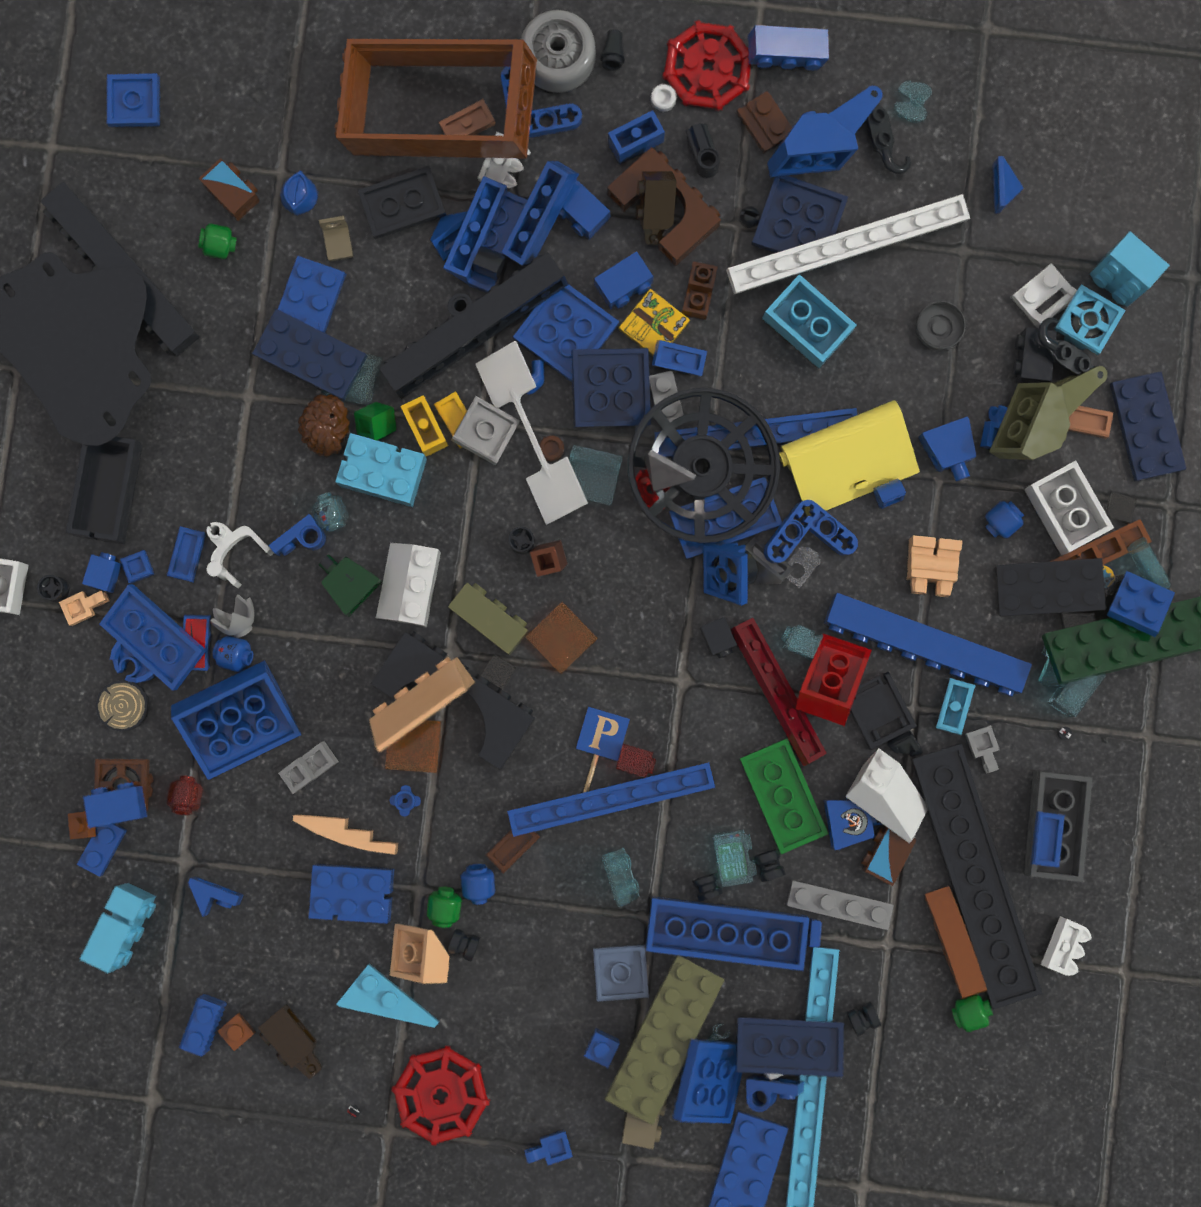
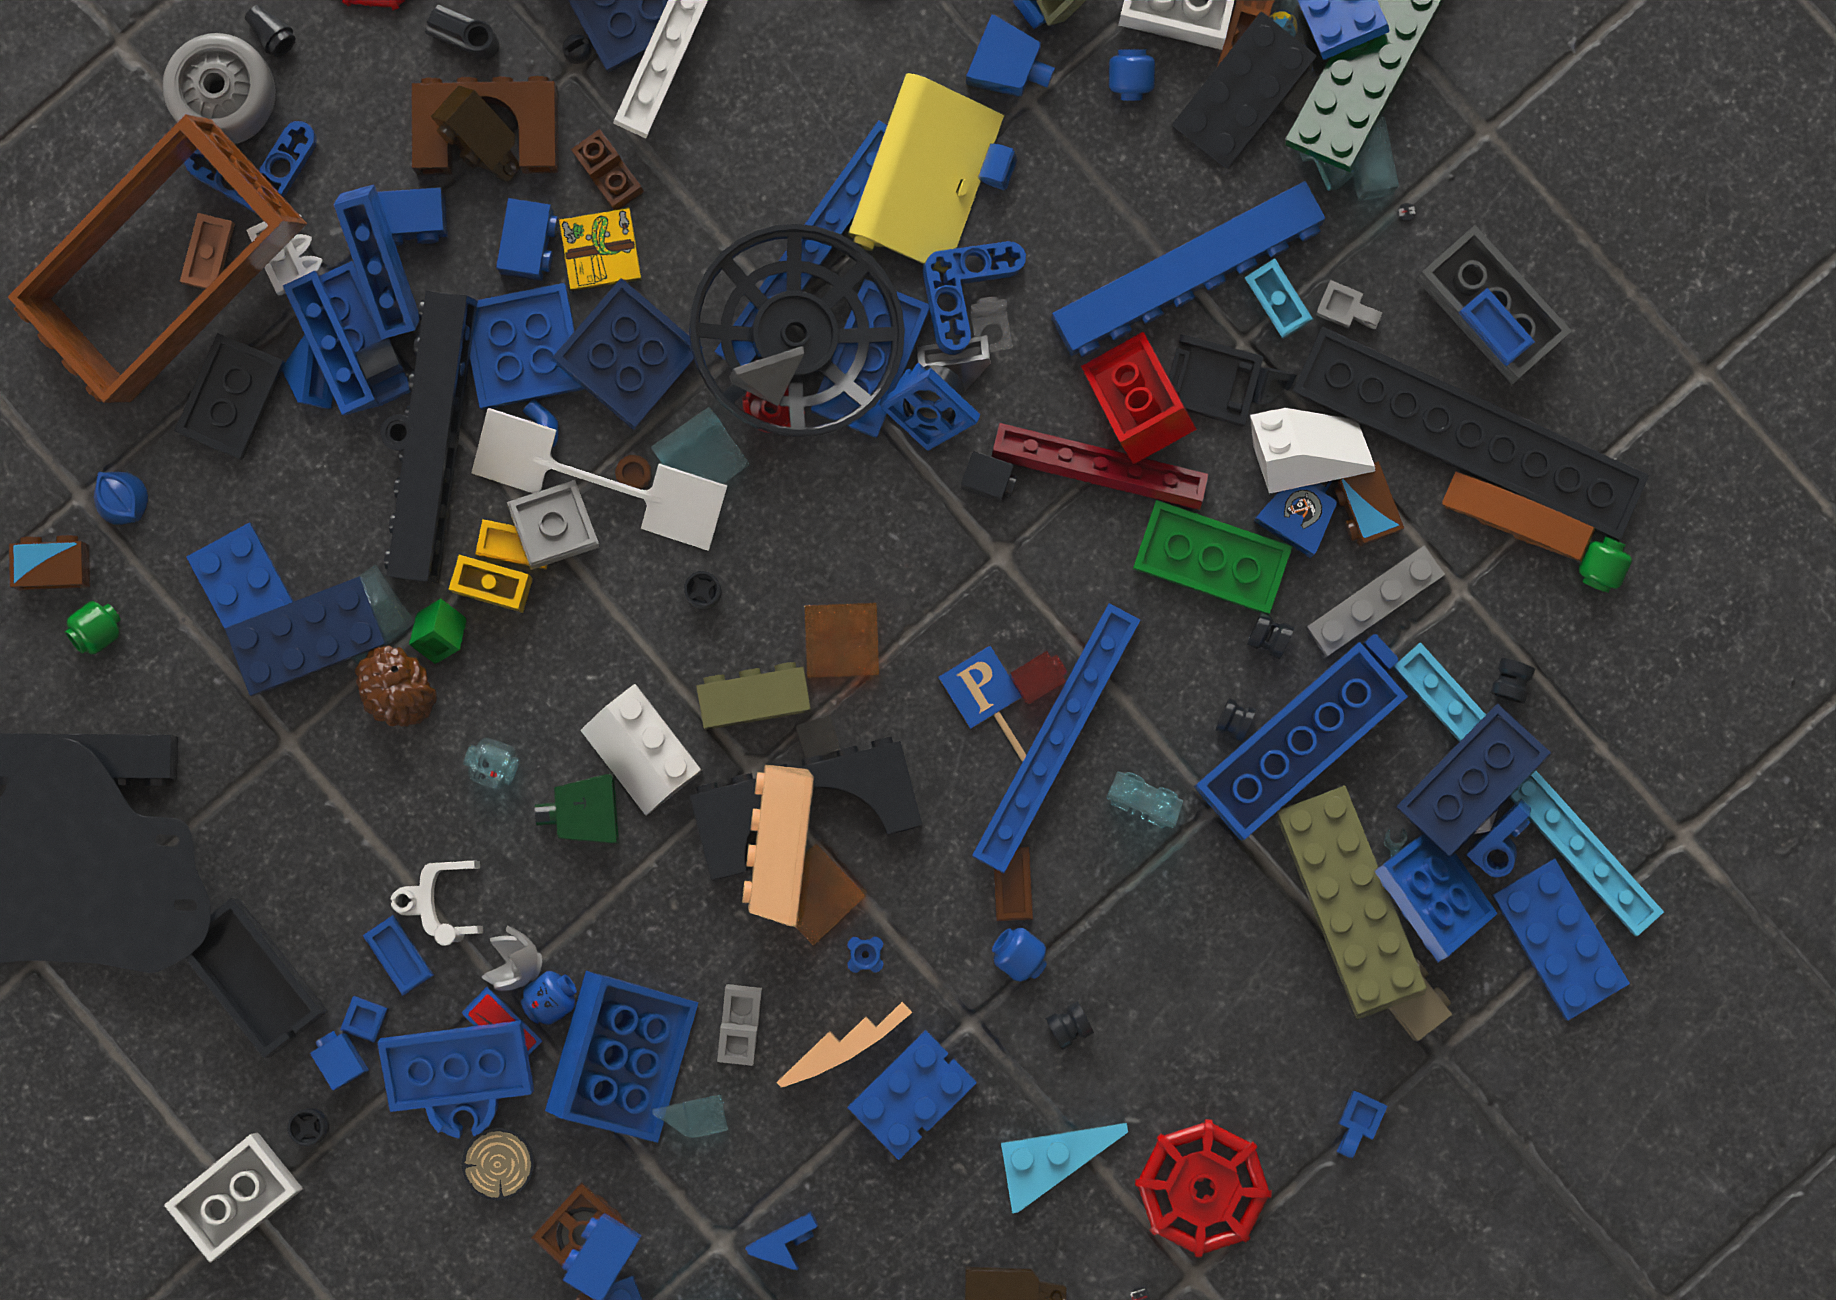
camera: 45 degrees left, 0 degrees up
(80, 607) = (353, 1116): light nougat plate -> none
(184, 795) = (653, 1180): clear red head -> none
(238, 787) = (695, 1116): none -> clear light blue slope
(286, 542) = (482, 839): blue plate -> none
(336, 238) = (206, 499): dark tan bracket -> none
(381, 470) = (496, 670): medium azure piece -> none
(418, 955) = (1038, 1081): light nougat slope -> none
(443, 907) = (1012, 1011): green head -> none
(548, 558) = (747, 578): copper brick -> none
(601, 1047) = (1302, 976): blue brick -> none
(620, 972) = (1243, 889): sand blue tile -> none
(636, 137) = (386, 90): blue brick -> none
(663, 98) = (368, 24): white tile -> none
(663, 386) = (675, 302): light grey plate -> none
(679, 358) = (660, 255): blue plate -> none
(733, 857) = (1229, 665): clear light blue brick -> none
(801, 641) = (1069, 395): clear light blue window -> none
(809, 321) = (744, 86): medium azure brick -> none
(933, 568) = (1119, 188): light nougat hips -> none
(1065, 947) = (1623, 409): white plate -> none

